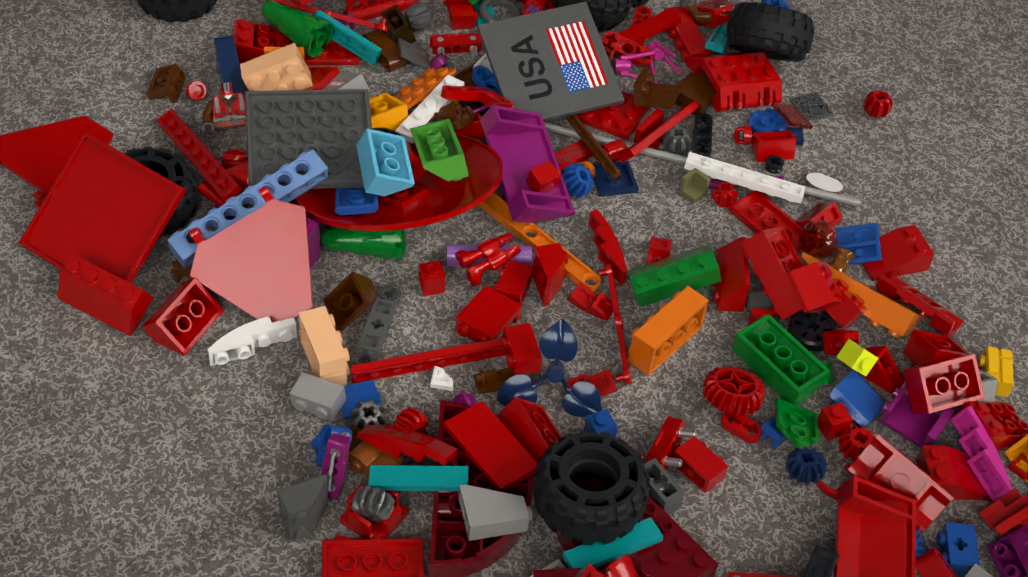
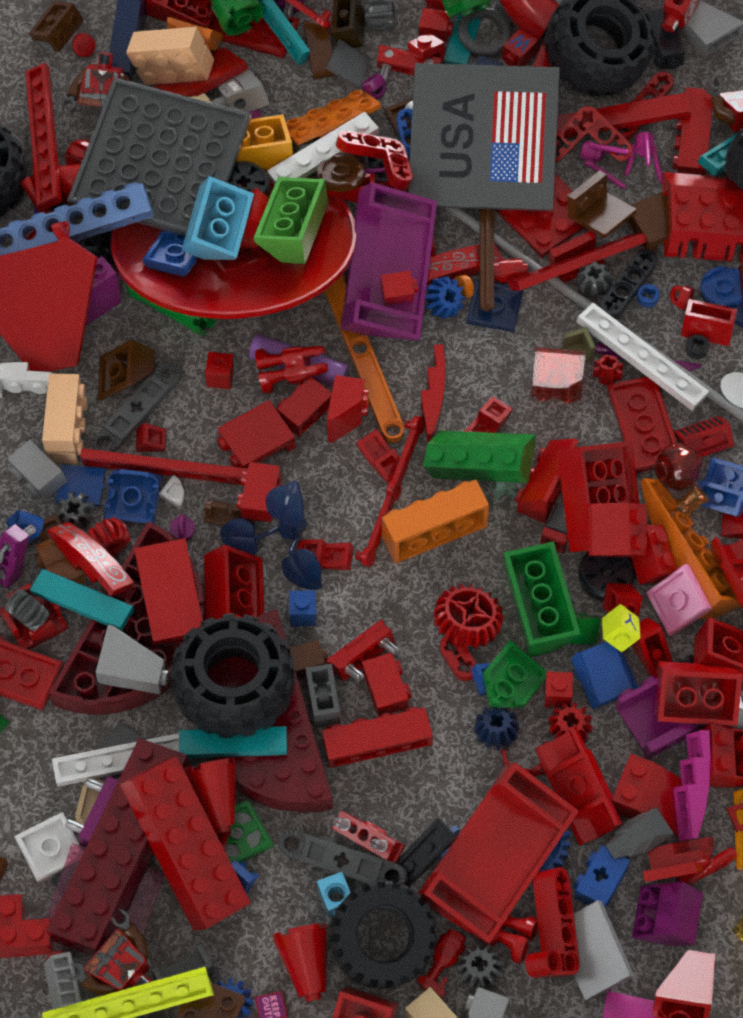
camera: 30 degrees right, 15 degrees up
(398, 345) = (150, 438): none -> red slope
(409, 389) = (132, 496): none -> blue slope
(466, 26) = (427, 46): none -> red bracket
(693, 204) = (558, 374): none -> clear red slope
(719, 142) = (645, 301): none -> blue bush
(720, 504) = (377, 737): none -> red brick
(880, 326) = (679, 600): none -> bright pink tile
(969, 503) = (639, 835): none -> dark grey connector

